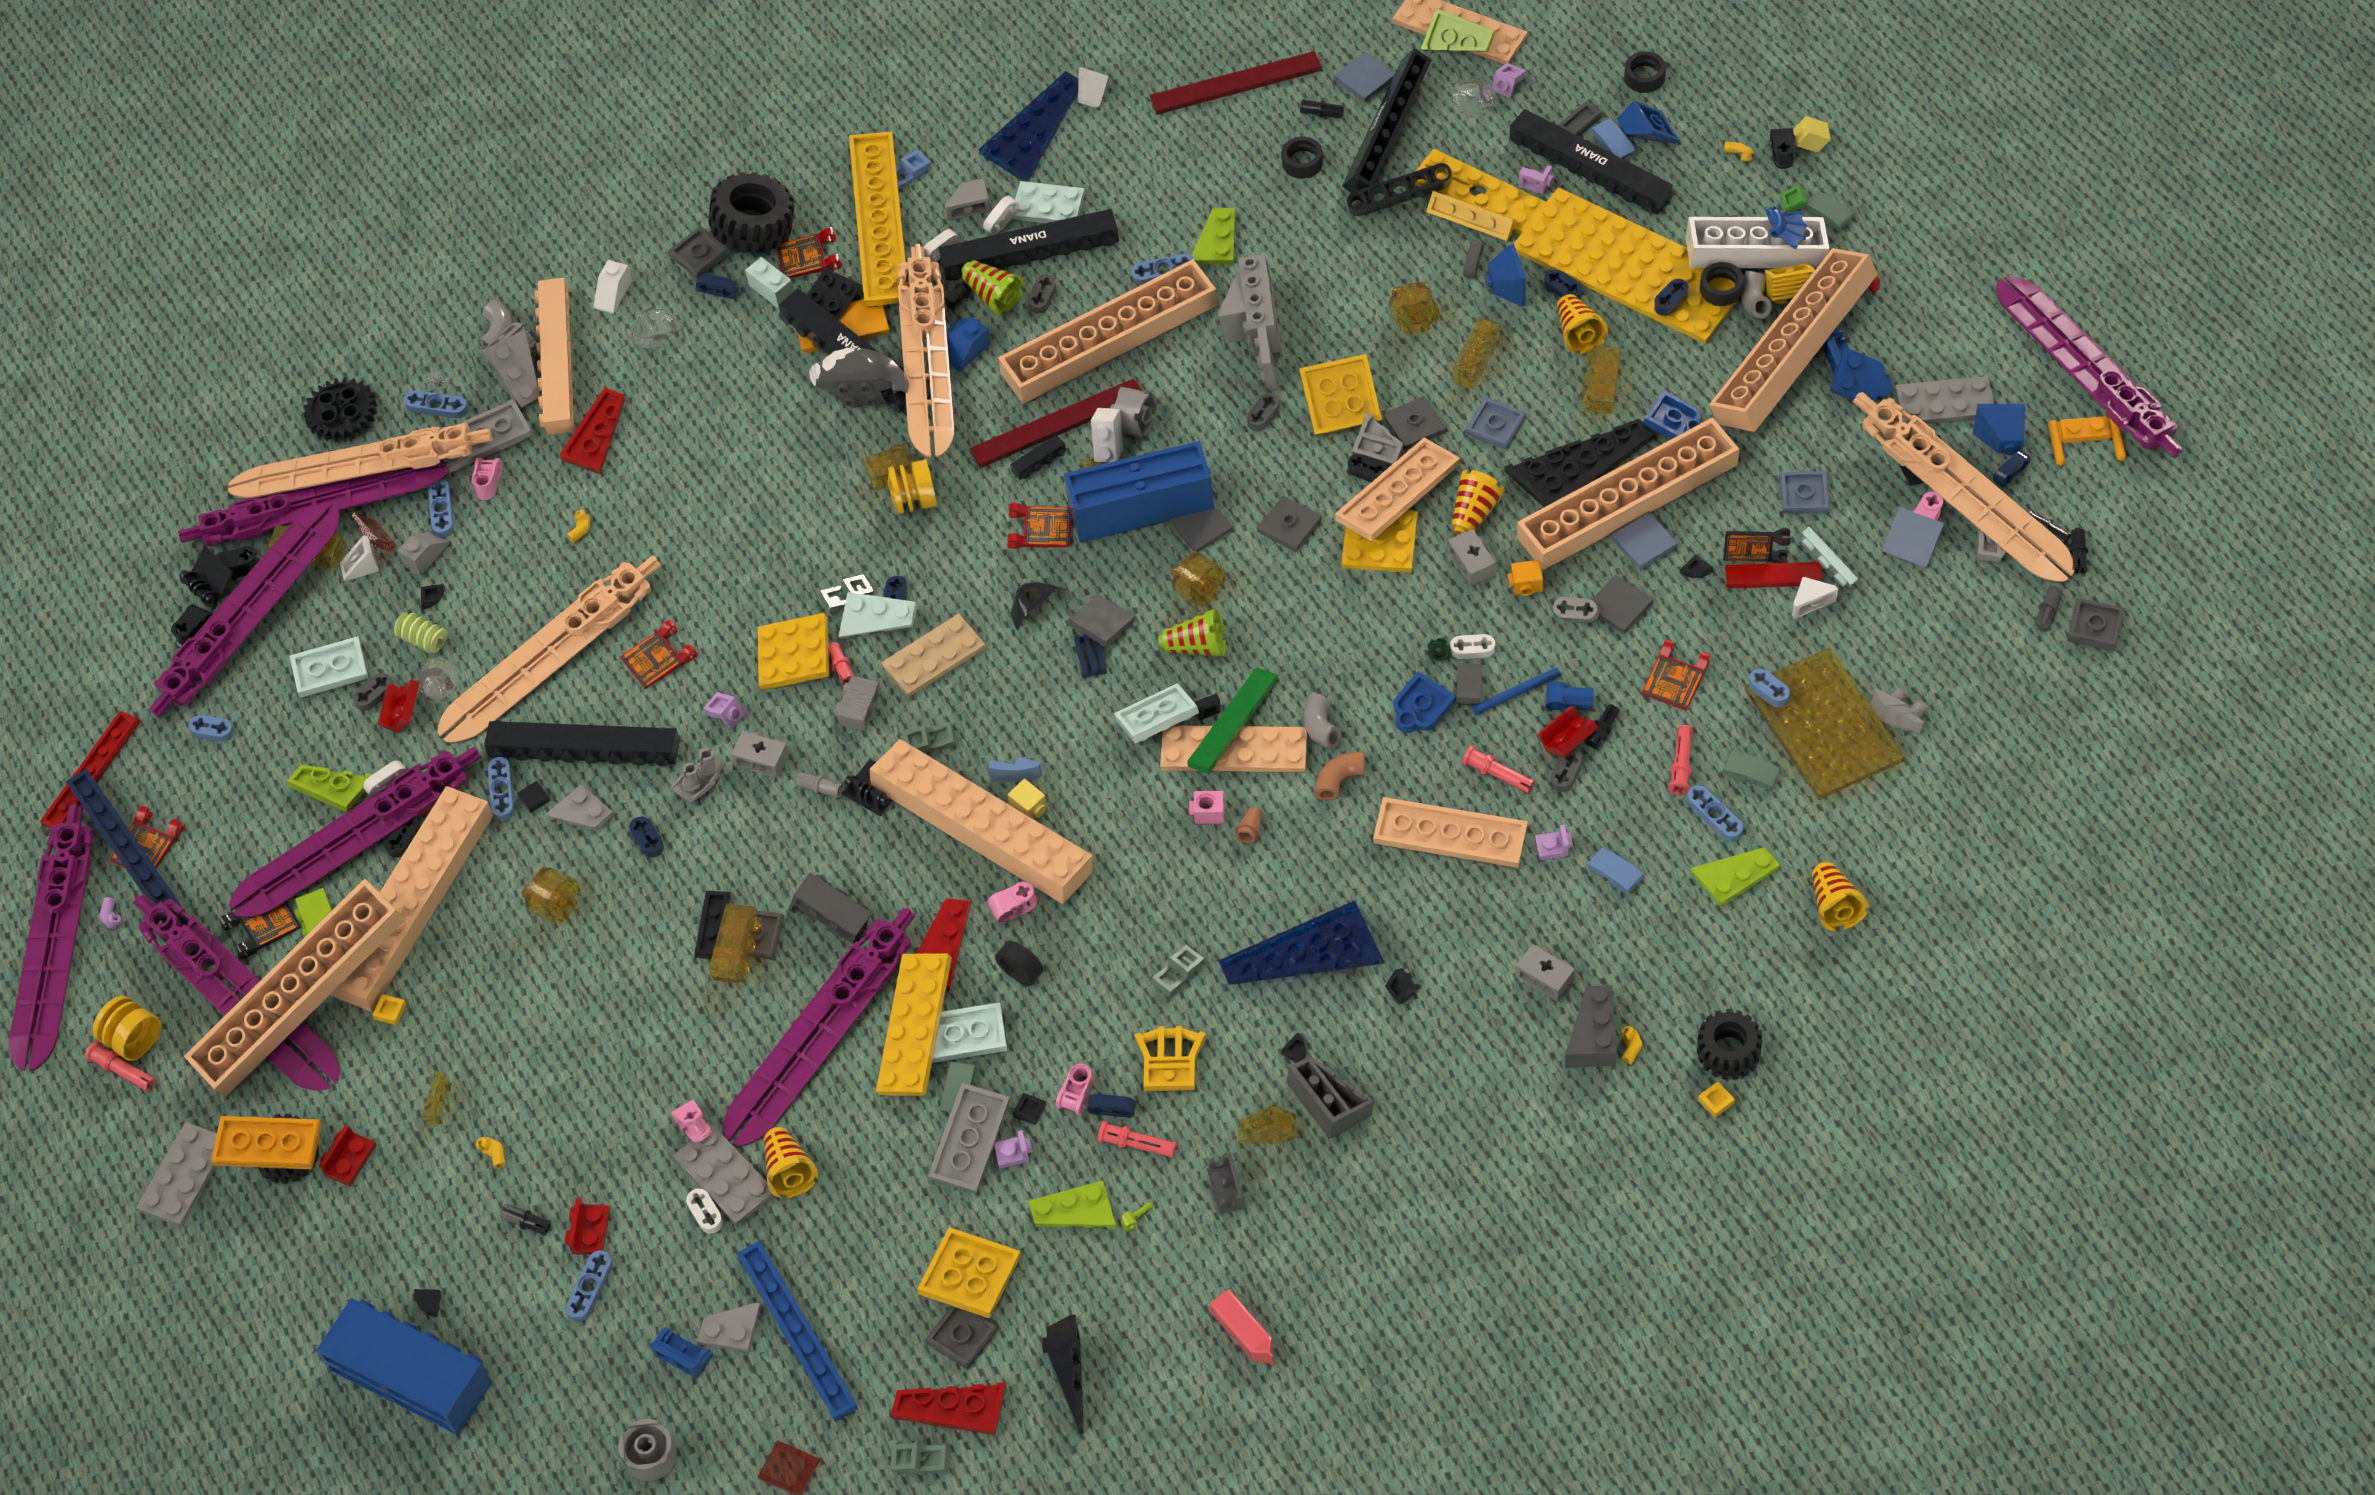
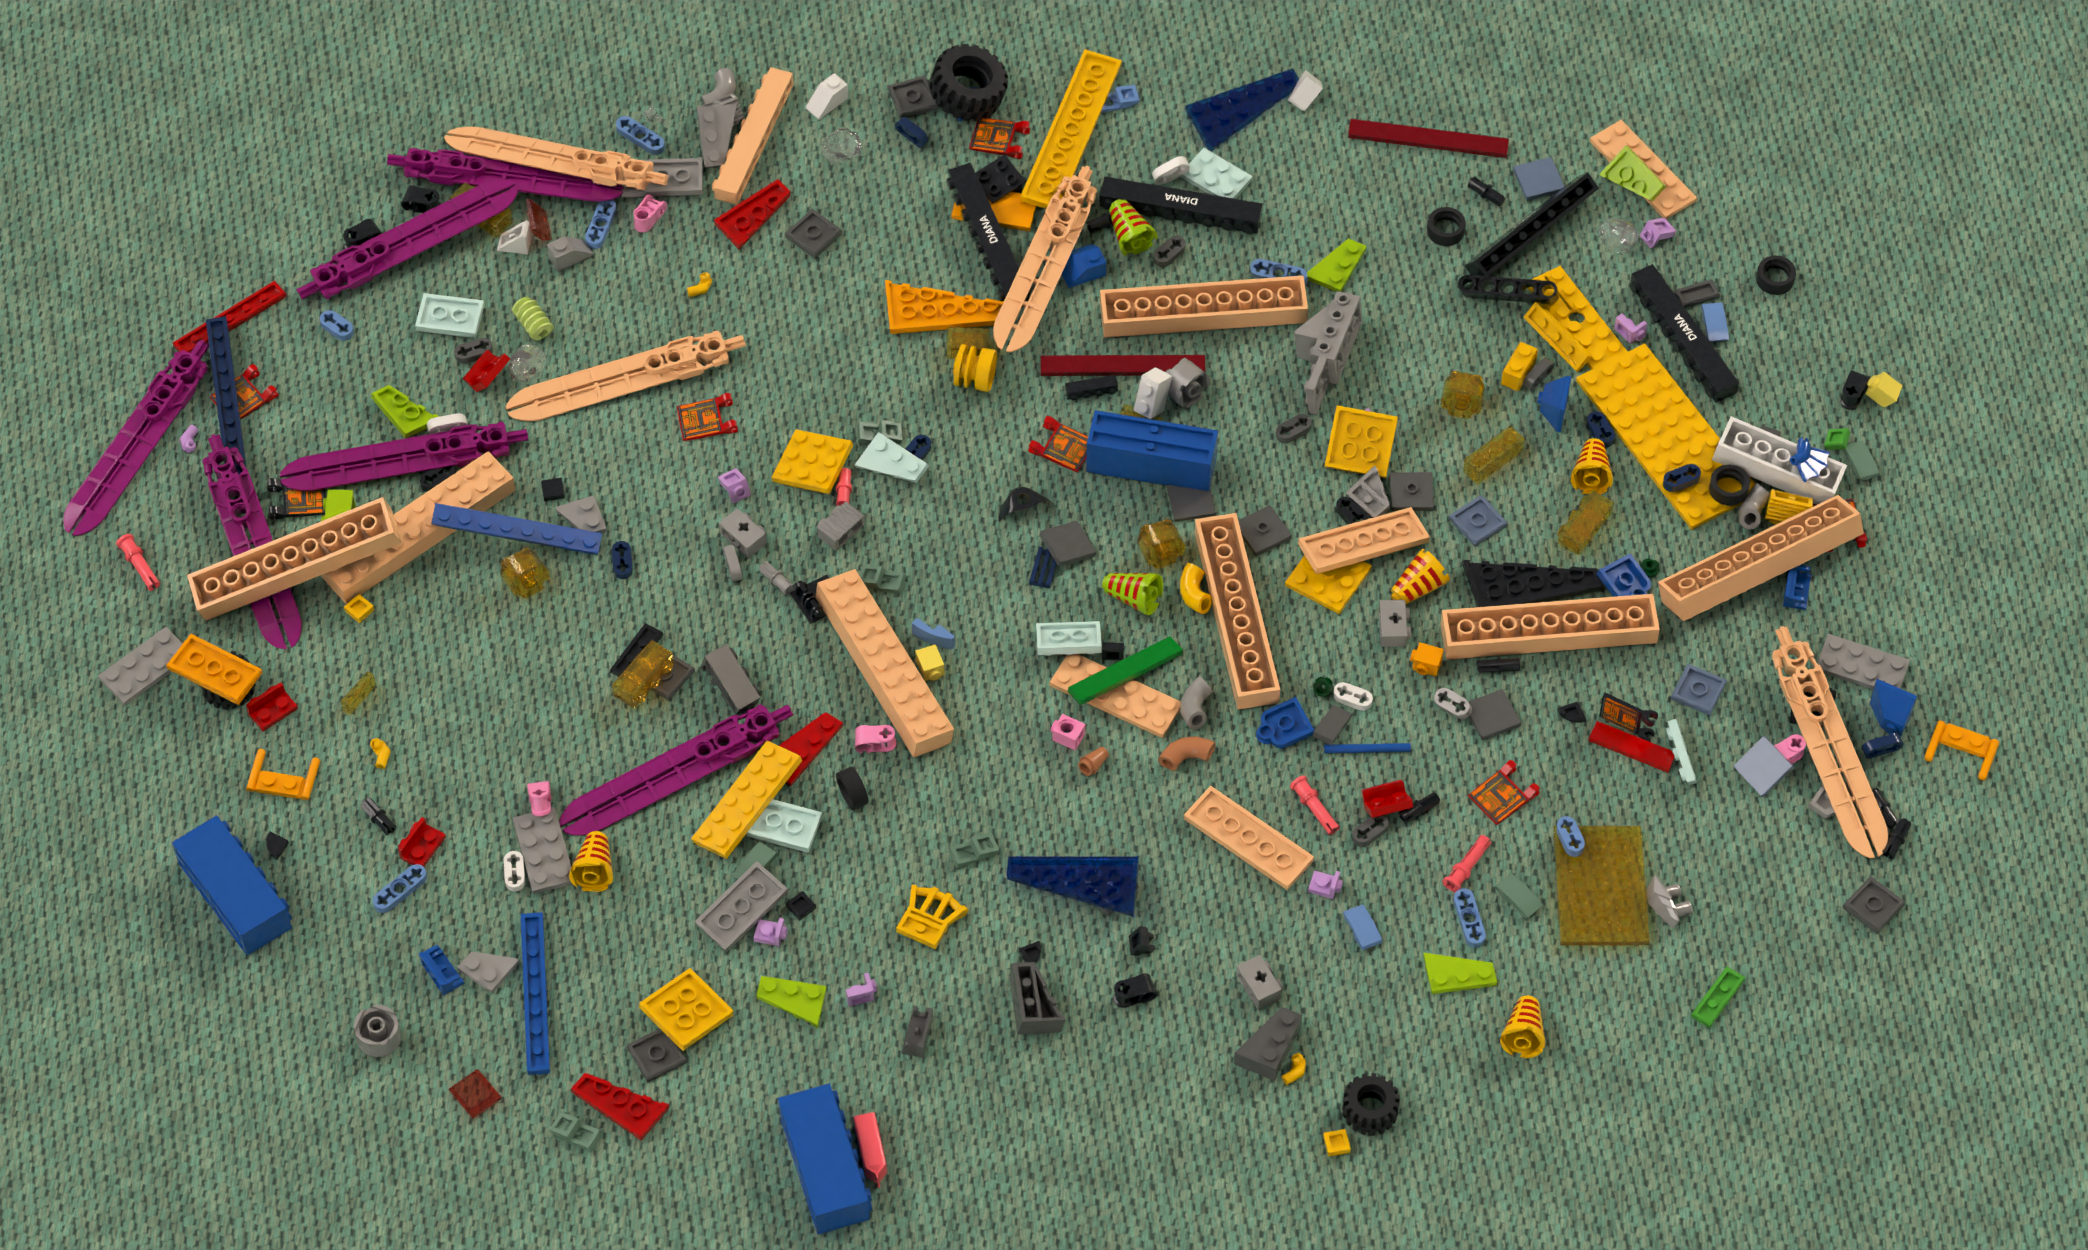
camera: 20 degrees right, 0 degrees up
(126, 1028) = (156, 534): yellow wheel -> none
(207, 578) = (391, 202): black hinge -> none
(323, 410) = (575, 113): black gear -> none
(398, 1233) = (279, 783): none -> light orange plate
(431, 594) = (557, 291): black tile -> none
(494, 782) = (531, 464): medium blue beam -> none
(518, 853) = (516, 529): none -> blue plate
(582, 743) = (611, 463): black brick -> none
(669, 426) = (813, 233): none -> dark grey plate
(698, 778) = (686, 531): light grey connector -> none
(765, 789) = (732, 563): none -> light grey beam
(769, 281) = (954, 146): light aqua brick -> none
(838, 447) = (935, 309): none -> light orange wing
(858, 376) = (981, 257): dark grey animal -> none
(933, 655) = (921, 513): tan plate -> none
(946, 238) = (1114, 171): white beam -> none
(968, 200) = (1151, 146): light grey slope -> none
(1065, 1358) = (724, 1105): black wedge -> none
(1073, 1093) = (841, 910): bright pink piece -> none
(1111, 1105) = (864, 931): dark blue beam -> none
(1122, 1140) = (862, 958): coral pin -> none
(1129, 1218) = (830, 1025): lime hand -> none
(1145, 1171) = (860, 994): none -> lavender bracket
(1204, 1362) = (825, 1158): none -> blue brick
(1252, 612) = (1191, 590): none -> yellow cylinder
(1267, 1126) = (974, 1003): clear yellow slope -> none
(1312, 613) = (1237, 611): none -> light nougat brick
(1424, 1039) = (1135, 990): none -> black piece
(1451, 258) = (1519, 366): none -> yellow brick
(1561, 697) = (1401, 769): blue piece -> none
(1598, 553) = (1498, 665): none -> black axle
(1644, 540) = (1543, 671): sand blue tile -> none
(1646, 123) = (1751, 320): blue slope -> none
(1692, 399) = (1650, 572): none -> dark green plate
(1739, 148) = (1818, 375): yellow arm -> none
(1813, 596) = (1651, 778): white slope -> none
(1860, 374) = (1800, 614): blue plate -> none
(2001, 781) = (1718, 997): none -> bright green tile
(2048, 607) = (1842, 874): dark grey axle -> none
(2088, 364) = (2006, 717): magenta piece -> none

